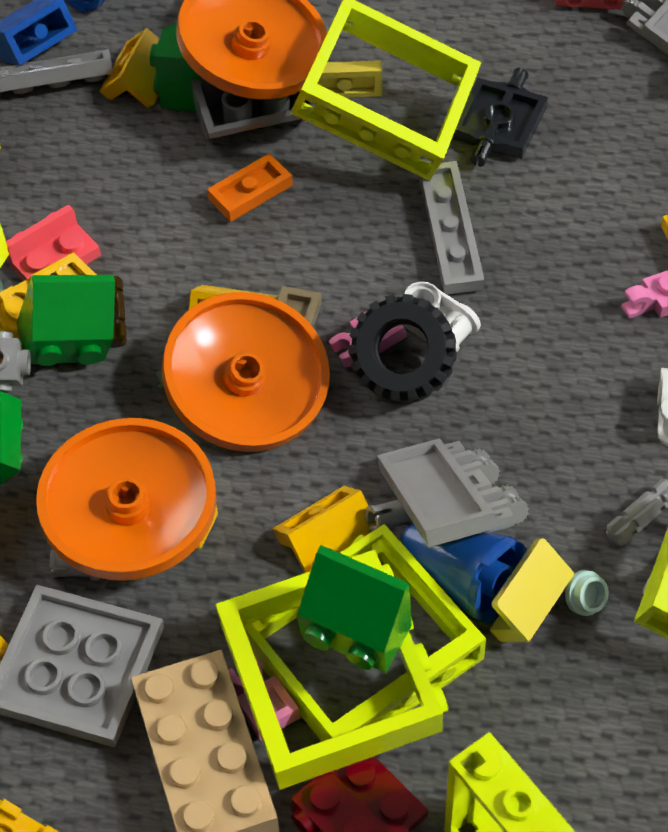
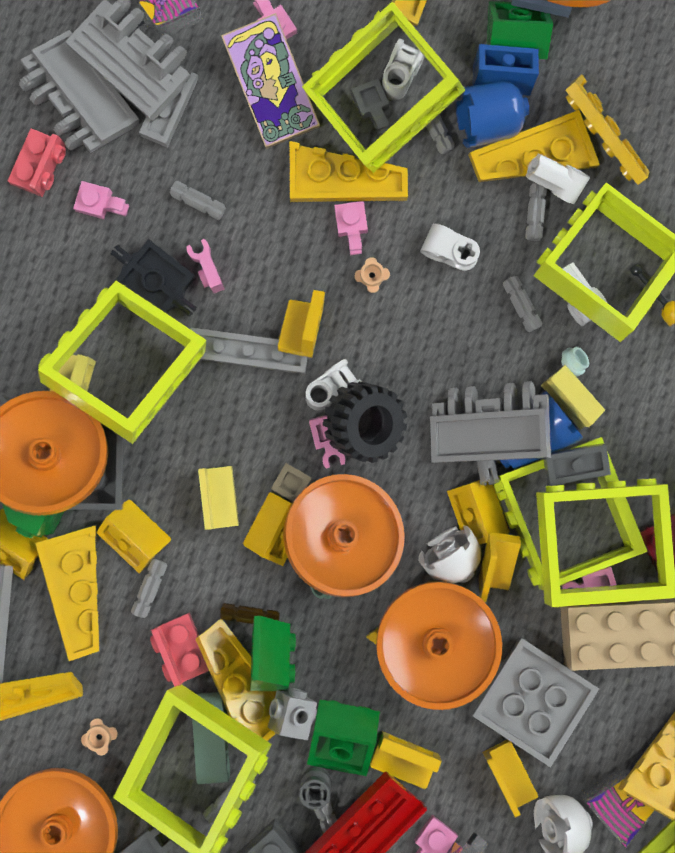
camera: 75 degrees left, 30 degrees up
(105, 130) = (72, 585): none -> yellow wing
(120, 205) = (149, 588): none -> light grey axle
(183, 173) = (133, 535): none -> yellow panel
(249, 187) = (164, 487): orange plate -> none
(252, 237) = (218, 497): none -> light yellow panel
(252, 502) = (453, 556): none -> white cylinder
(257, 550) = (498, 563): none -> yellow panel
(354, 610) = (603, 522): green slope -> none
(435, 606) = (577, 464): none -> dark grey plate
(506, 269) = (301, 325): none -> yellow panel
(534, 163) = (209, 274): none -> bright pink plate
(574, 48) = (97, 200): none -> bright pink plate
(606, 321) = (372, 266): none -> light nougat plate
(618, 136) = (197, 200): none -> light grey axle

